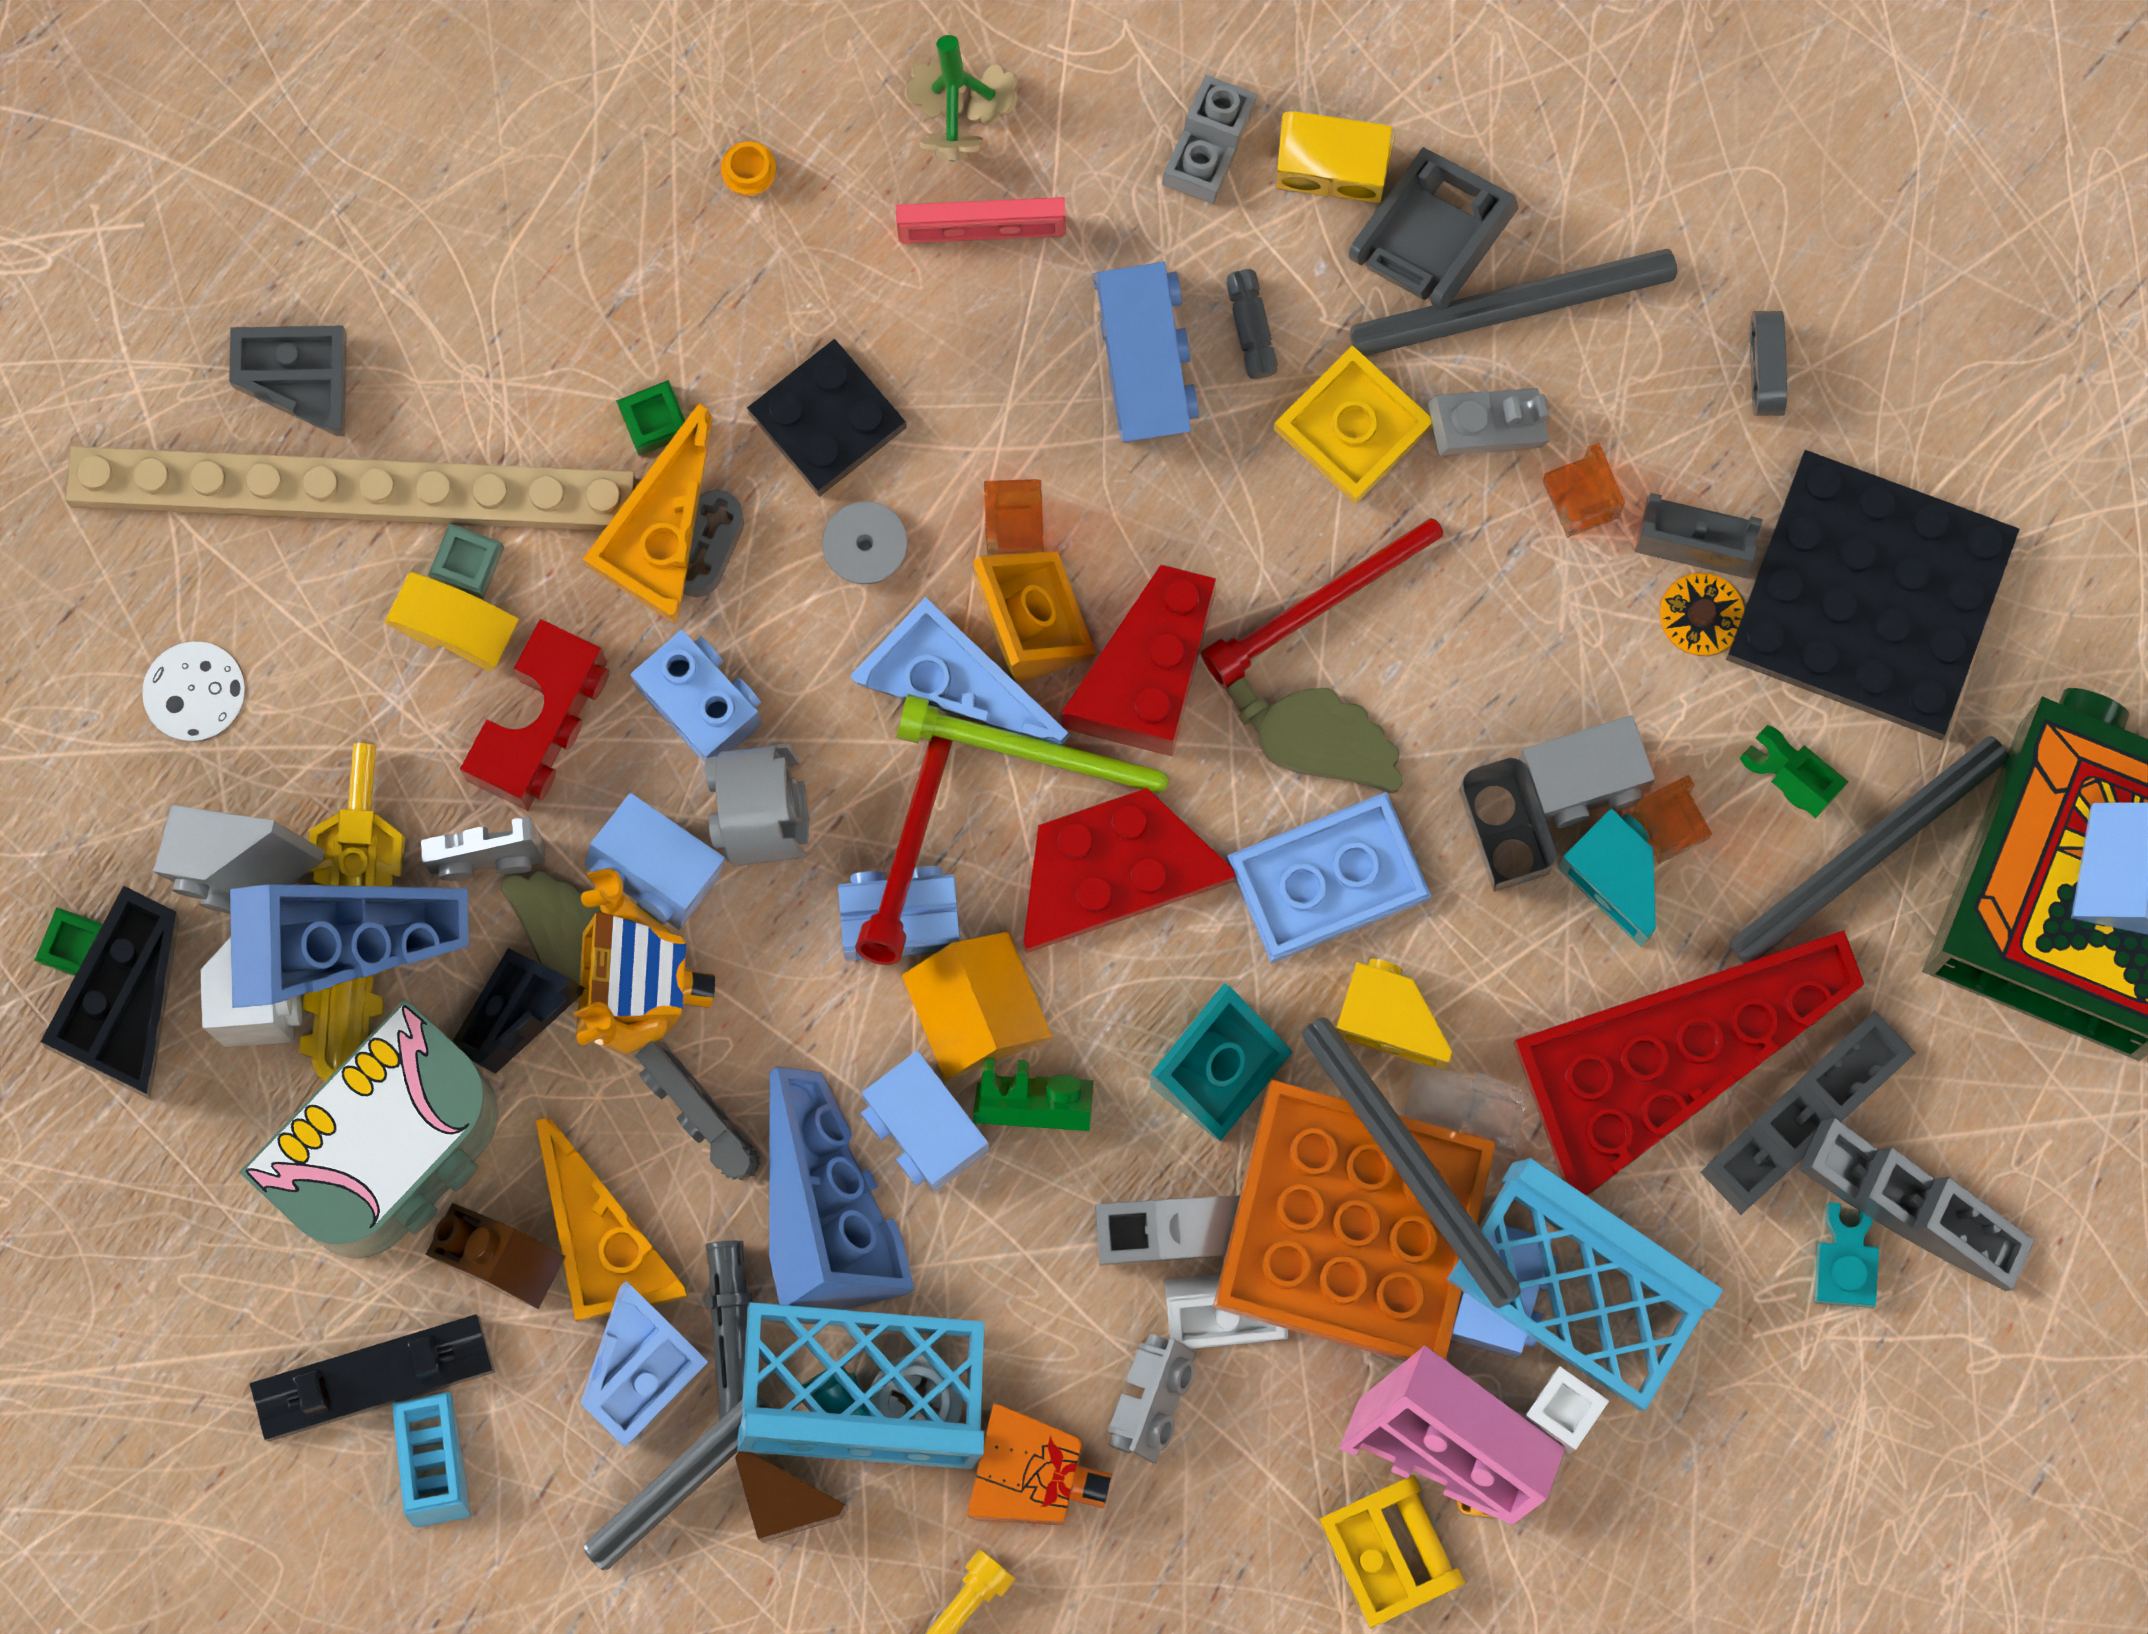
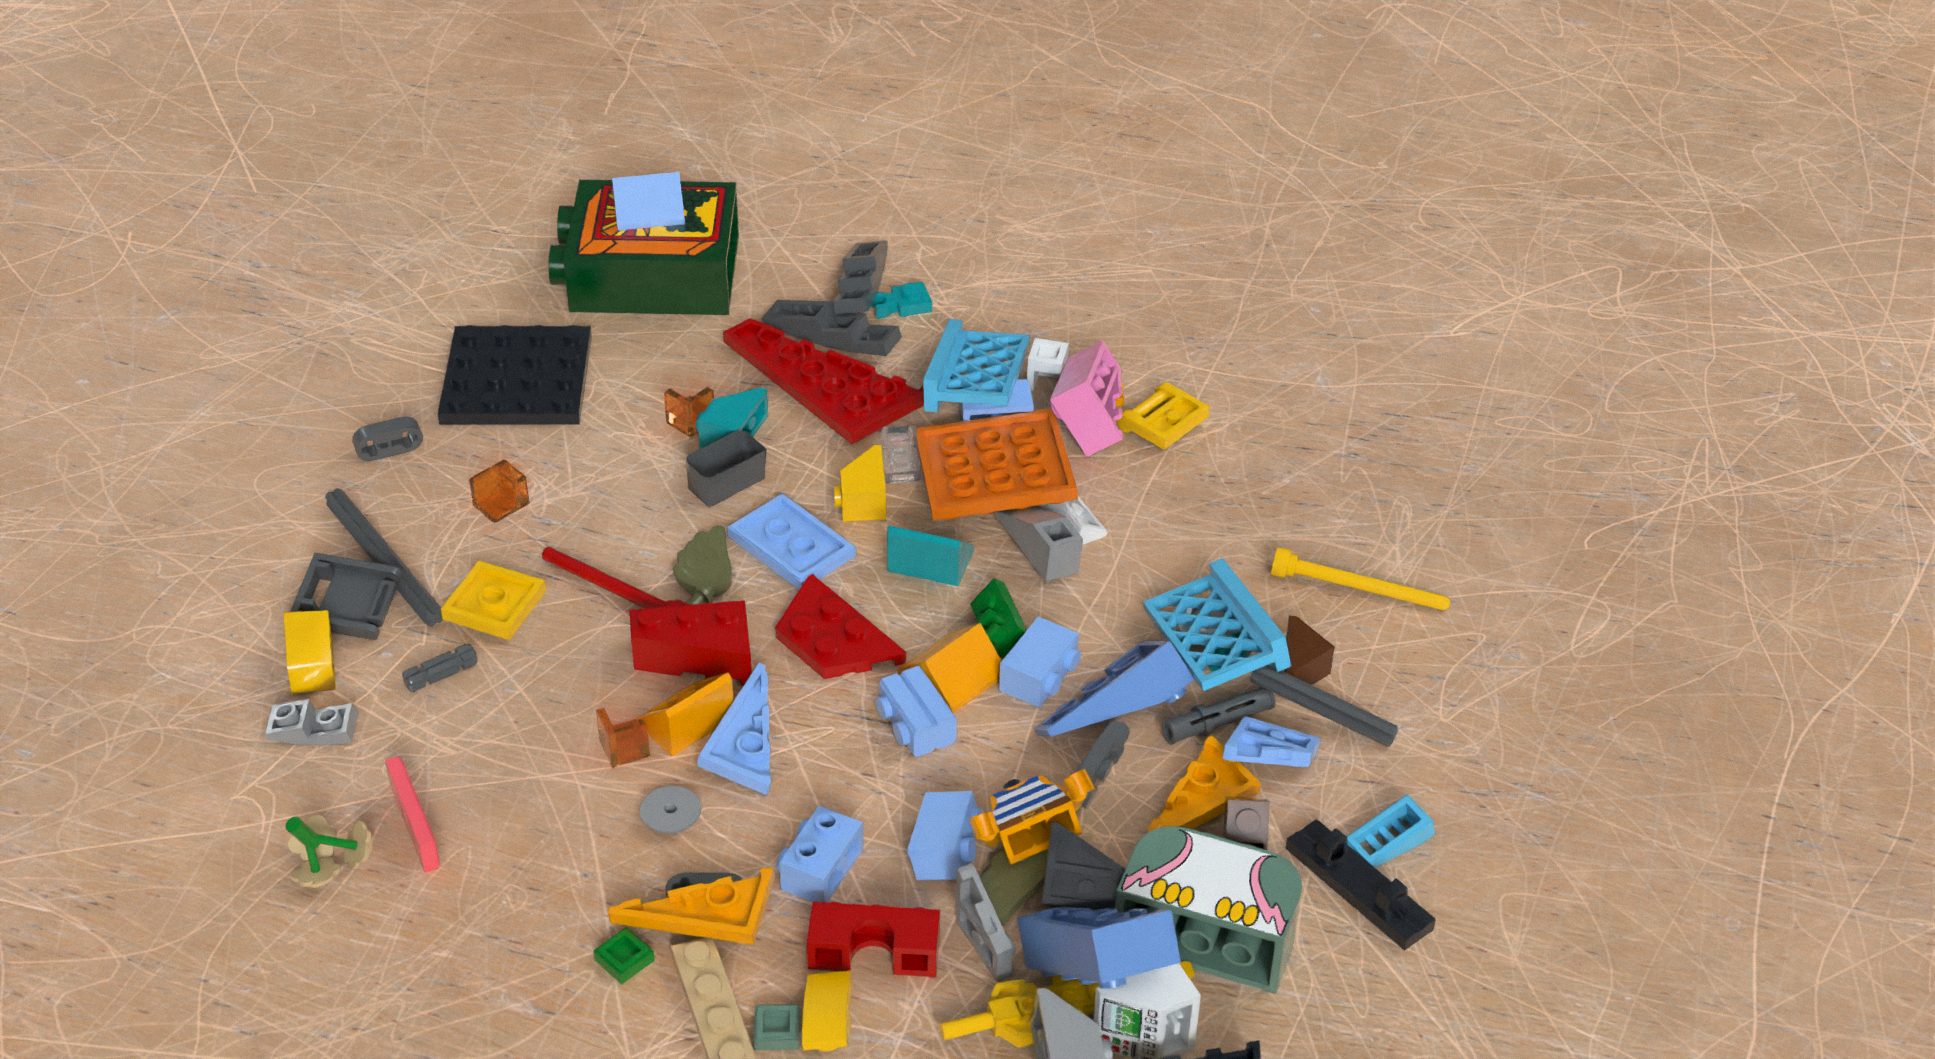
camera: 115 degrees left, 35 degrees down
(748, 168) = (410, 958): light orange plate -> none
(758, 805) = (880, 787): light grey brick -> none
(826, 417) = (586, 860): black plate -> none
(882, 936) = (939, 681): red piece -> none
(924, 721) = (783, 736): lime piece -> none
(1031, 1473) = (1212, 542): orange torso -> none
(1145, 351) = (474, 699): medium blue wedge -> none
(1147, 1424) = (1124, 523): light grey hinge -> none
(1411, 1163) = (948, 434): dark grey axle -> none
(1489, 421) = (468, 537): light grey plate -> none
(1589, 771) = (670, 437): light grey brick -> none
(1698, 536) = (509, 437): dark grey hinge -> none
(1701, 614) = (555, 439): piece -> none
(1800, 774) = (640, 369): green plate -> none
(1869, 850) = (671, 341): dark grey axle -> none

